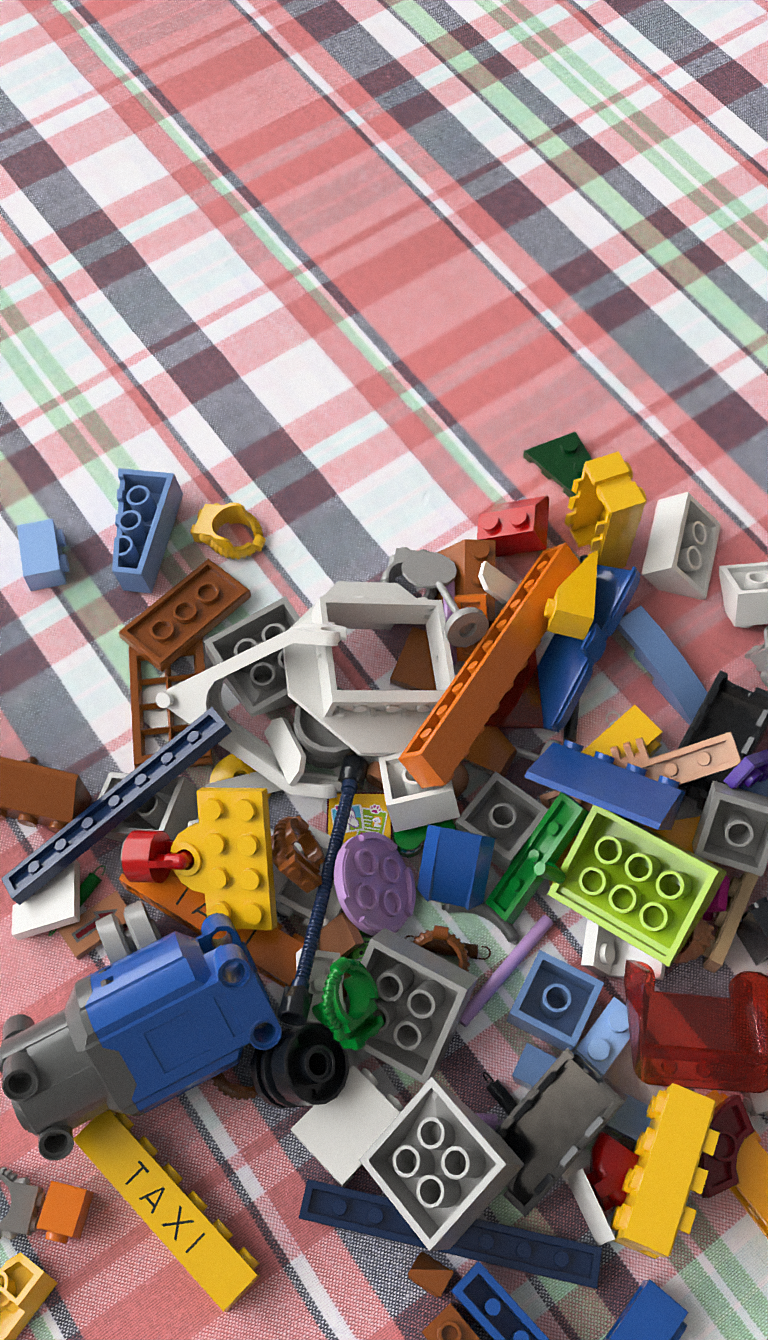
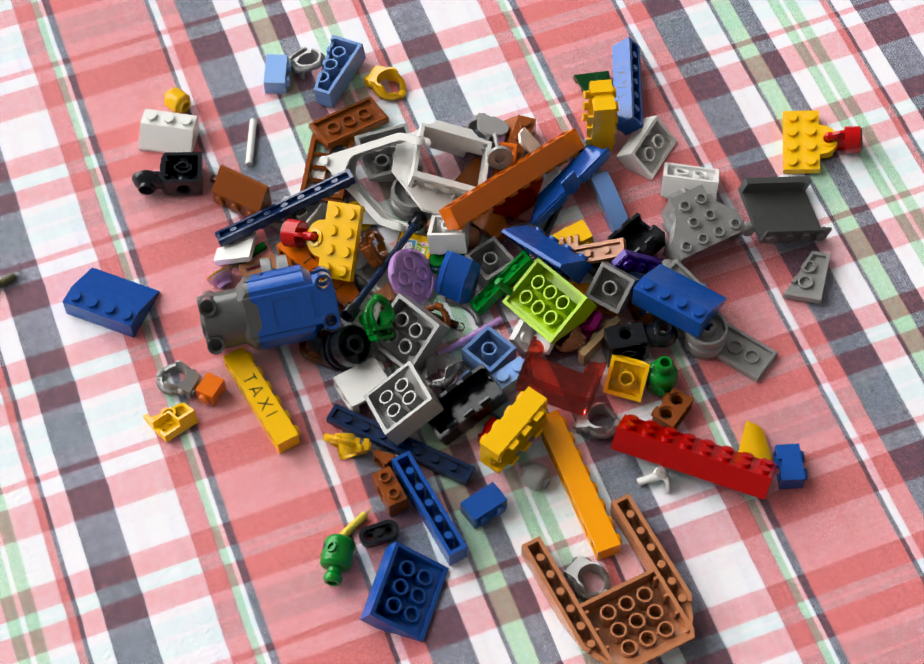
camera: 15 degrees right, 5 degrees down
(27, 686) = (251, 142): none -> white bar
(33, 967) = (221, 277): none -> lavender piece
(82, 514) = (303, 57): none -> light grey piece
(286, 749) = (384, 202): white piece -> none
(357, 1271) = (347, 444): none -> yellow piece
(483, 1034) = (444, 362): none -> light grey piece
(516, 526) = (552, 115): red slope -> none
(574, 601) = (566, 157): yellow slope -> none
(590, 1208) = (474, 445): white sticker -> none
(610, 432) = (628, 85): none -> brick
(716, 1235) = (535, 476): none -> light grey head
(734, 1126) = (548, 431): dark red tile -> none

